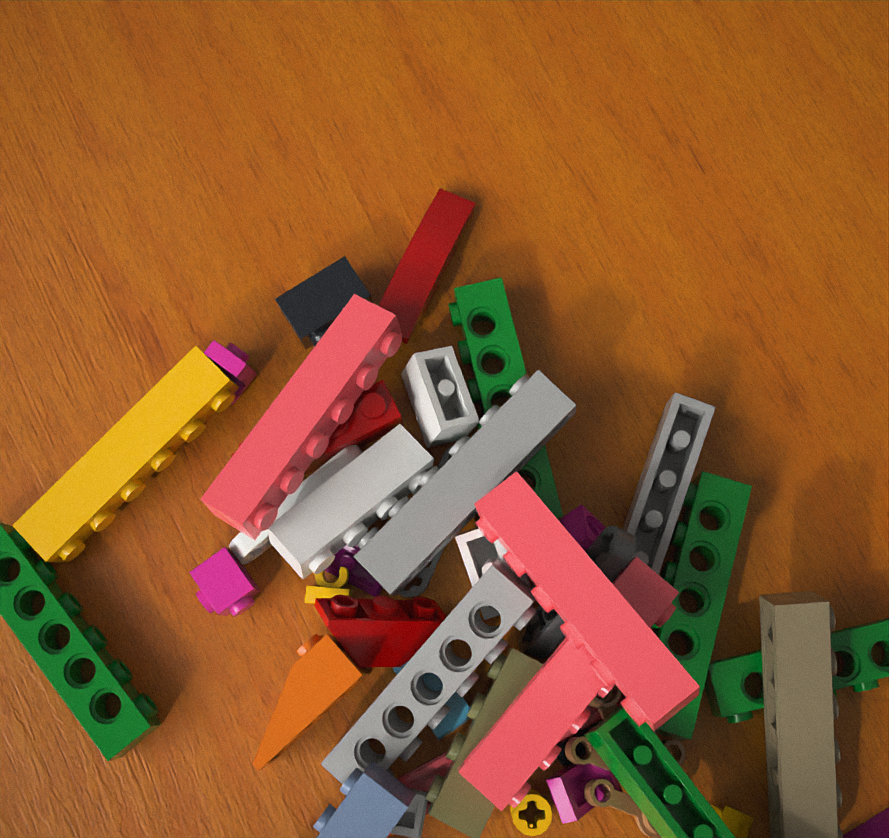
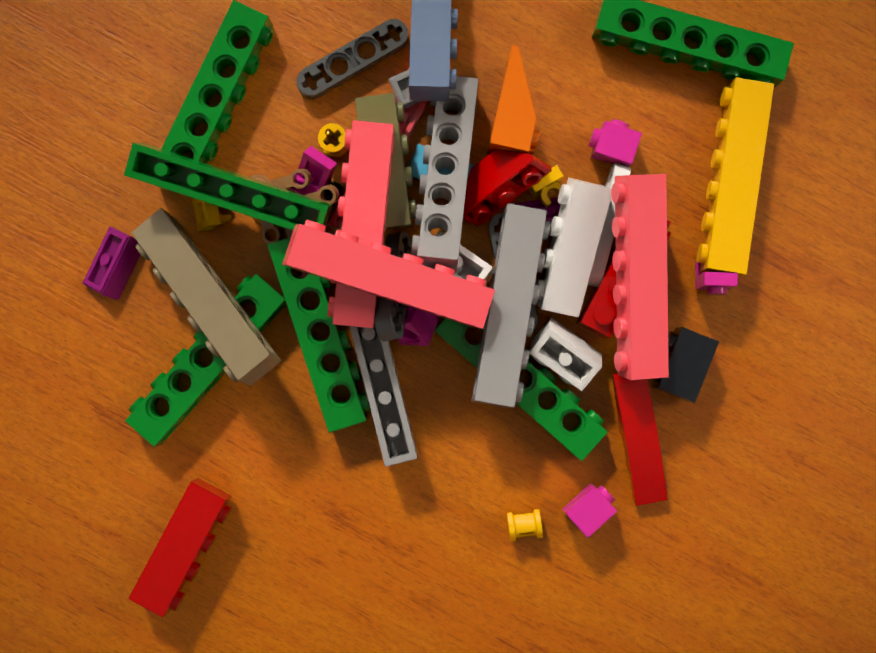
camera: 140 degrees right, 10 degrees up
(525, 227) = (590, 509): none -> dark pink brick
(602, 258) = (525, 525): none -> yellow bush

